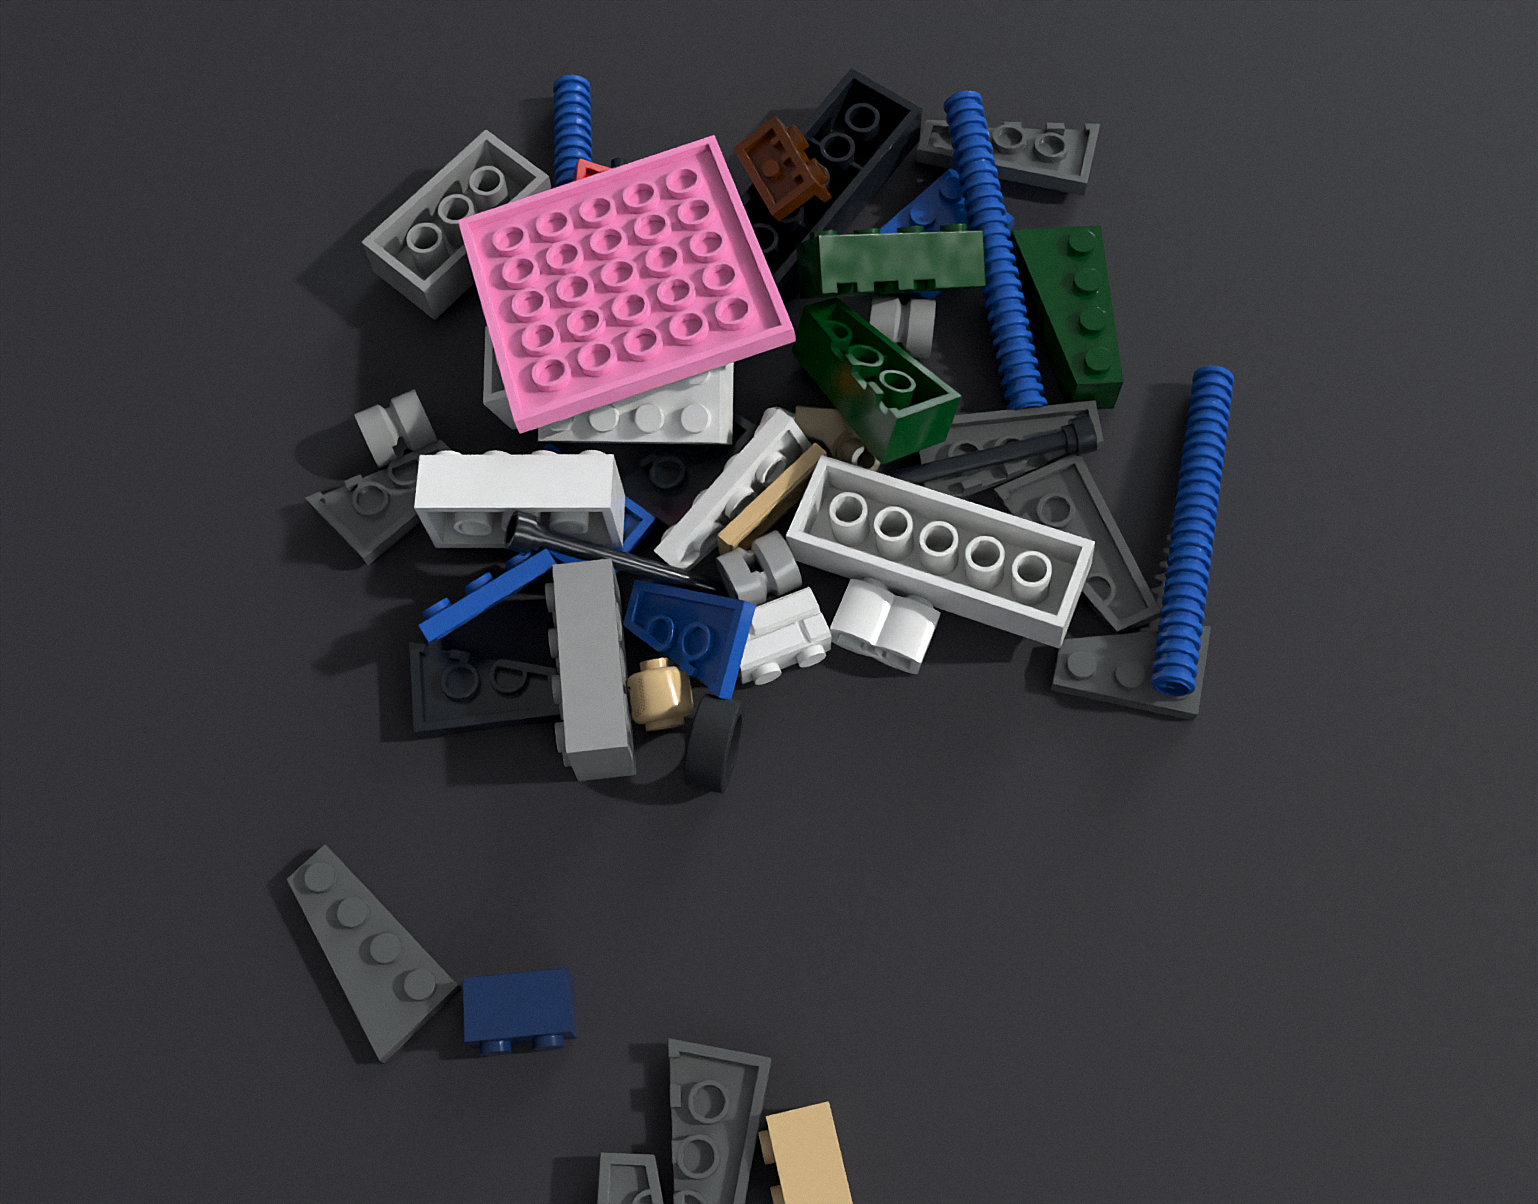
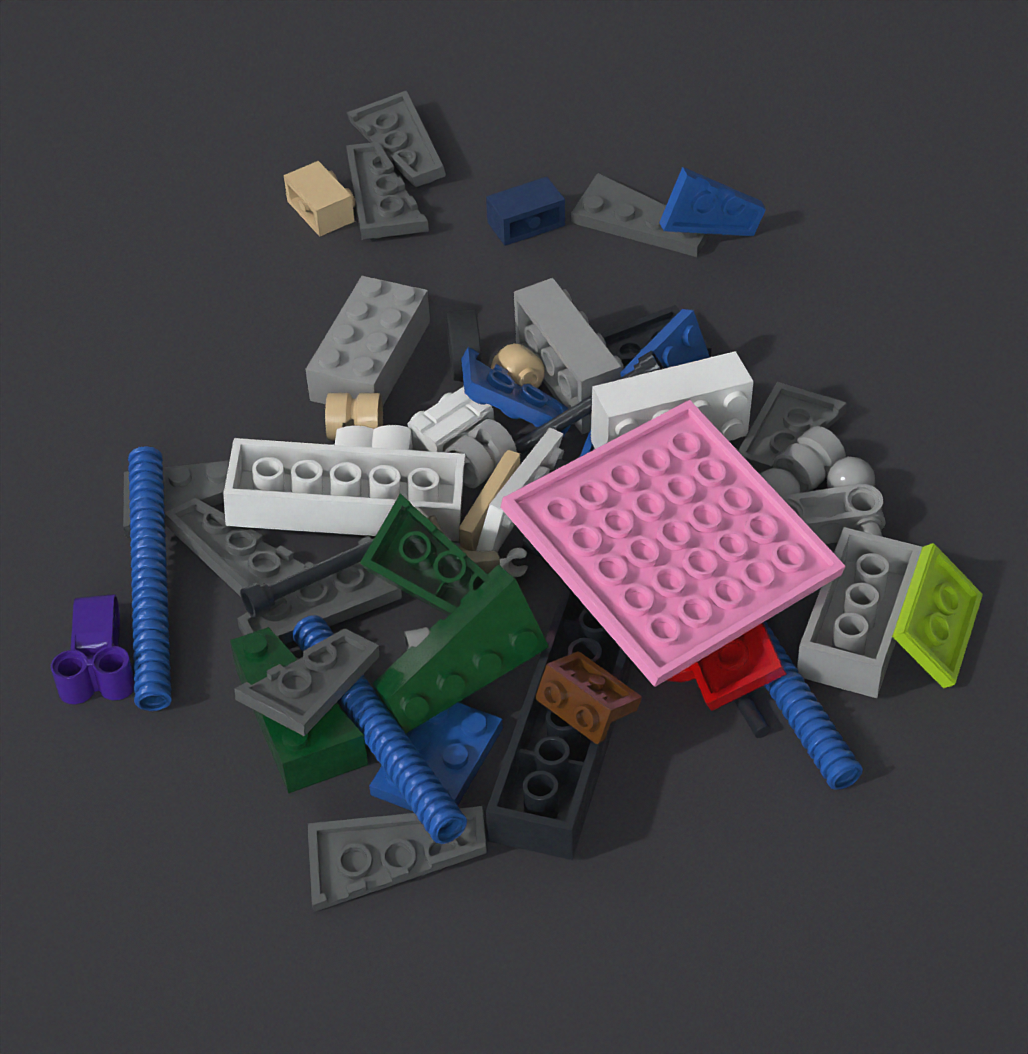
camera: 160 degrees right, 20 degrees down
(281, 859) = (710, 208): none -> blue wing
(389, 193) = (938, 615): none -> lime tile
(418, 357) = (847, 502): none -> light grey piece
(832, 810) = (369, 340): none -> light grey brick
(890, 686) = (345, 411): none -> tan wheel
(1053, 276) = (313, 684): none -> dark grey wing
(1269, 457) = (95, 654): none -> dark purple piece

